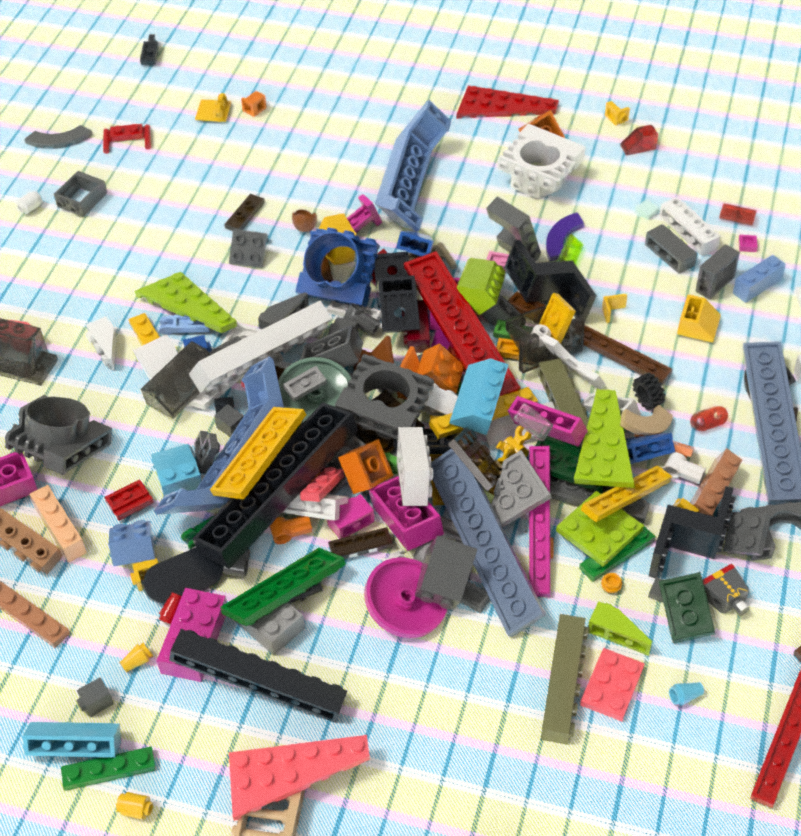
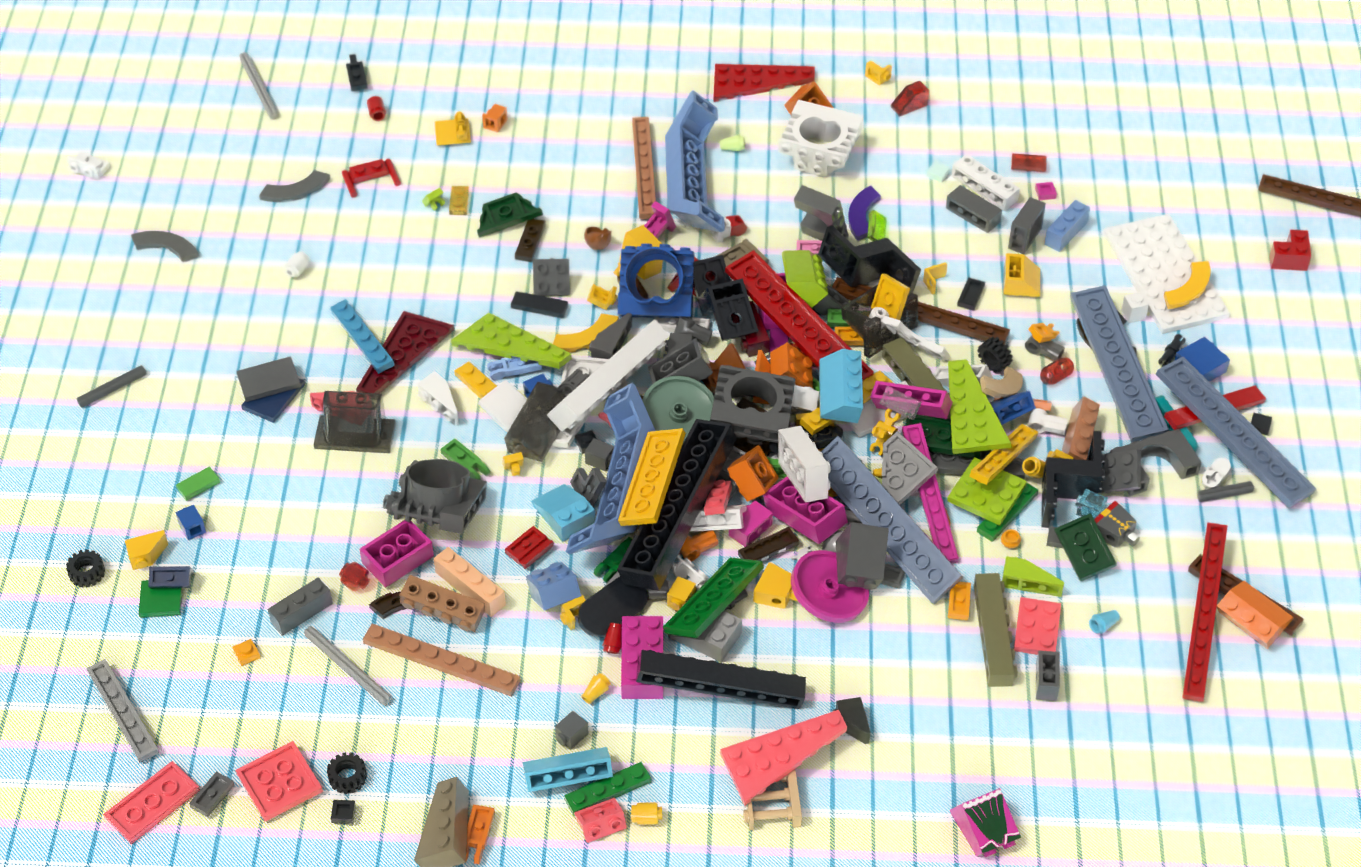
camera: 15 degrees left, 0 degrees up
(57, 274) = (362, 336): none -> dark azure plate
(64, 46) = (258, 85): none -> light grey axle
(84, 181) = (345, 232): dark grey window -> none
(86, 802) = (601, 820): none -> coral bracket
(93, 289) = (406, 344): none -> dark red wing
(103, 403) = (459, 453): none -> bright green hinge
(145, 414) = (513, 462): none -> yellow tile
(154, 81) = (376, 108): none -> red brick
(172, 162) = (434, 196): none -> lime tile
(195, 169) = (459, 200): none -> clear yellow plate
(230, 186) = (506, 213): none -> dark green wing
(230, 272) = (539, 304): none -> black tile
(246, 311) = (582, 339): none -> yellow tile
(254, 573) = (680, 593): none -> yellow brick
(270, 550) = (685, 569): none -> white hinge
(287, 273) = (602, 297): none -> yellow bracket
(305, 383) = (670, 404): light grey plate -> none
(349, 586) = (774, 587): none -> yellow torso
(371, 162) = (643, 166): none -> nougat plate
(383, 745) = (855, 718): none -> pearl dark grey slope
(415, 243) = (729, 245): blue slope -> none
(433, 228) = (733, 226): none -> leg
(461, 156) = (733, 143): none -> yellowish green cone
(476, 458) = (856, 445): dark brown plate -> none
(537, 639) = (959, 601): none -> light orange plate
(605, 742) = (1047, 675): none -> dark grey brick
(645, 328) = (971, 294): none -> black tile
(654, 512) = (1033, 467): none -> yellow brick
(700, 388) = (1048, 348): none -> dark grey piece
(703, 378) = (1043, 333): none -> light orange plate
(706, 562) = (1090, 503): none -> clear light blue brick

